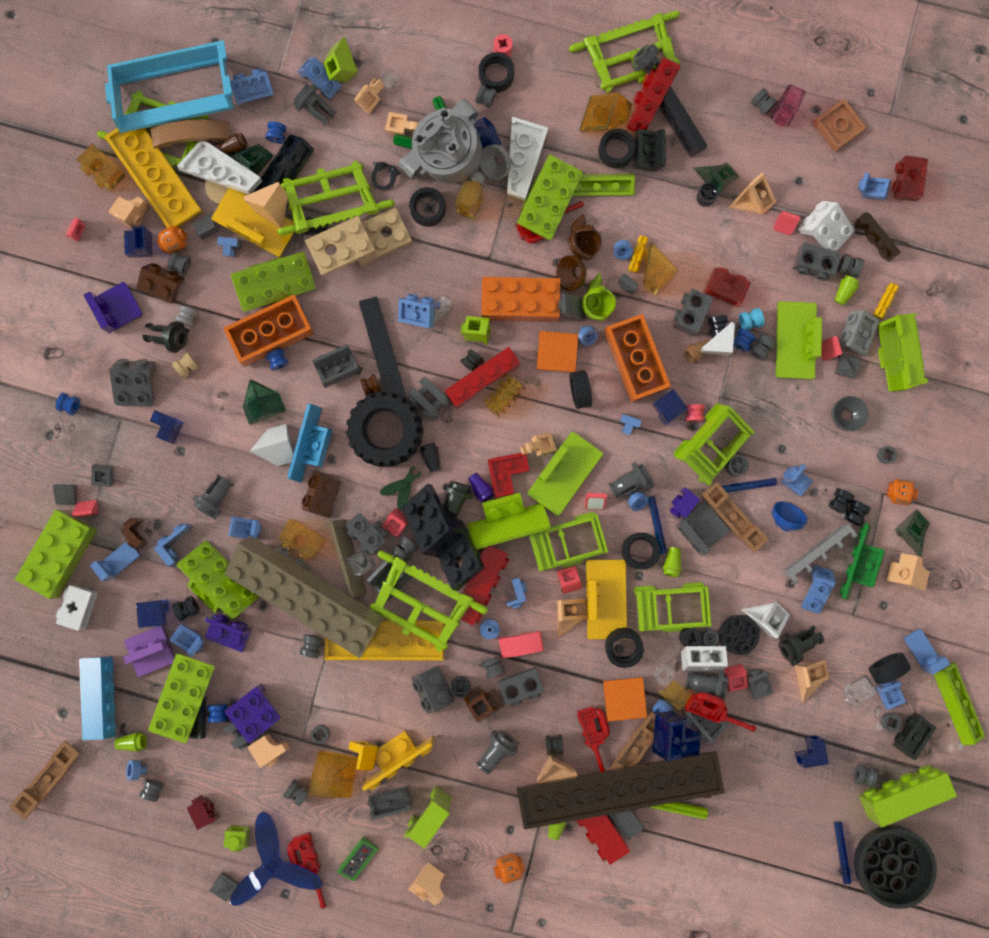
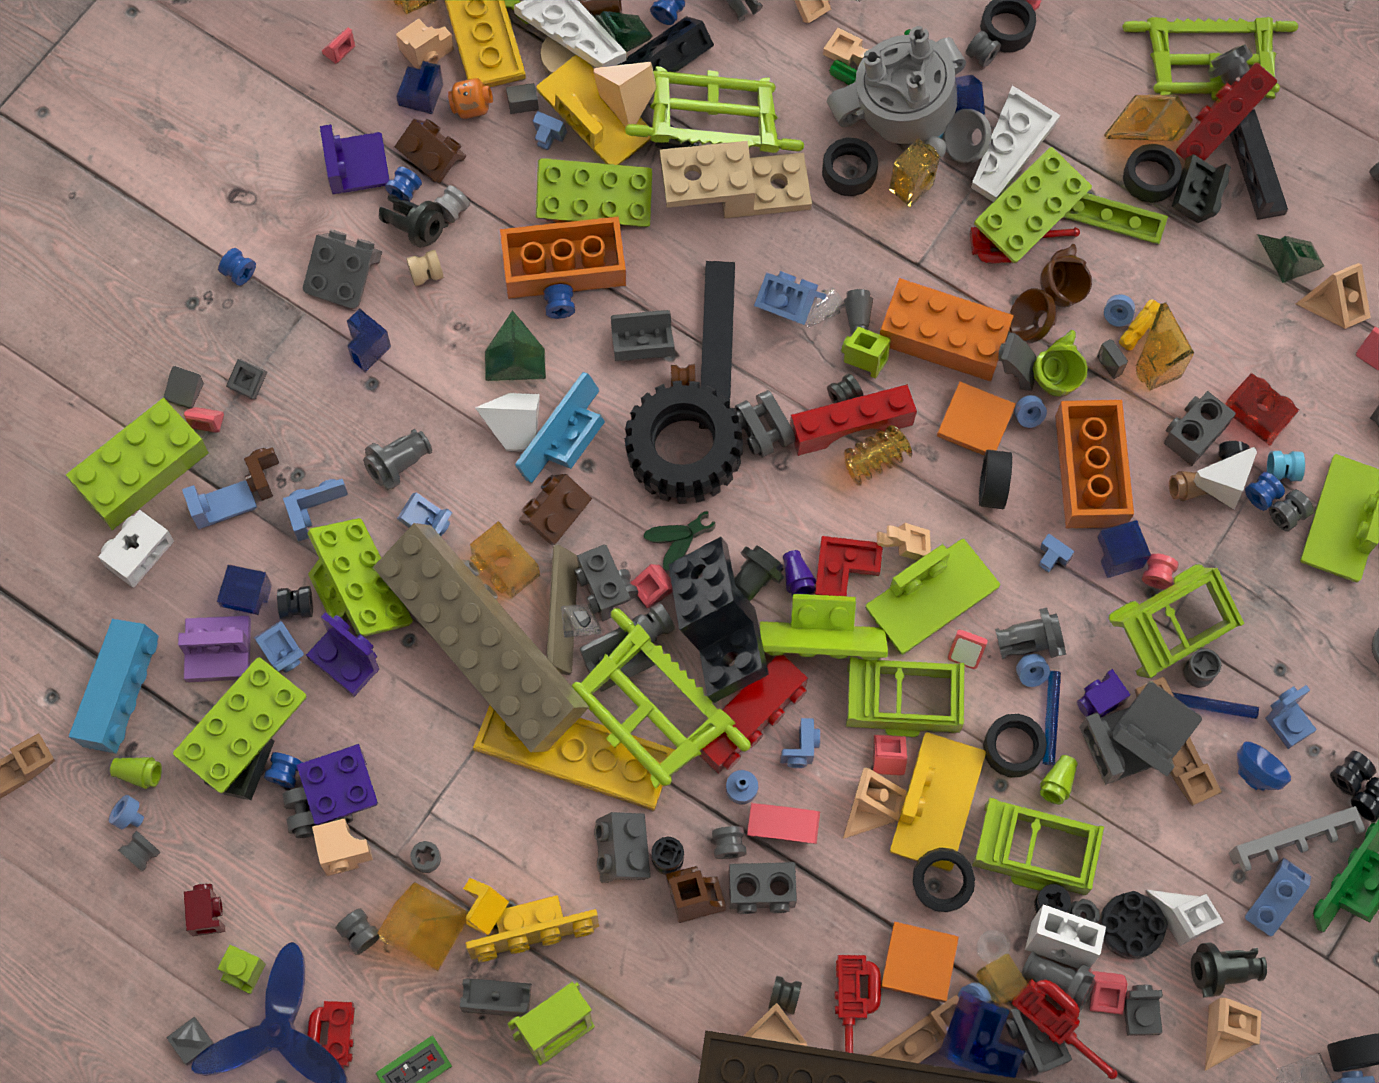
camera: 20 degrees right, 15 degrees down
(151, 313) = (403, 184): none -> blue wheel
(179, 263) = (468, 132): dark grey wheel -> none
(311, 644) = (463, 715): dark grey wheel -> none
(393, 174) = (815, 109): black piece -> none
(431, 456) = (738, 505): black cone -> none
(463, 303) = (858, 308): none -> dark grey cone
(500, 746) = (692, 972): dark grey piece -> none
(707, 194) = (1268, 273): black wheel -> none
(720, 517) = (1156, 727): none -> dark grey bracket

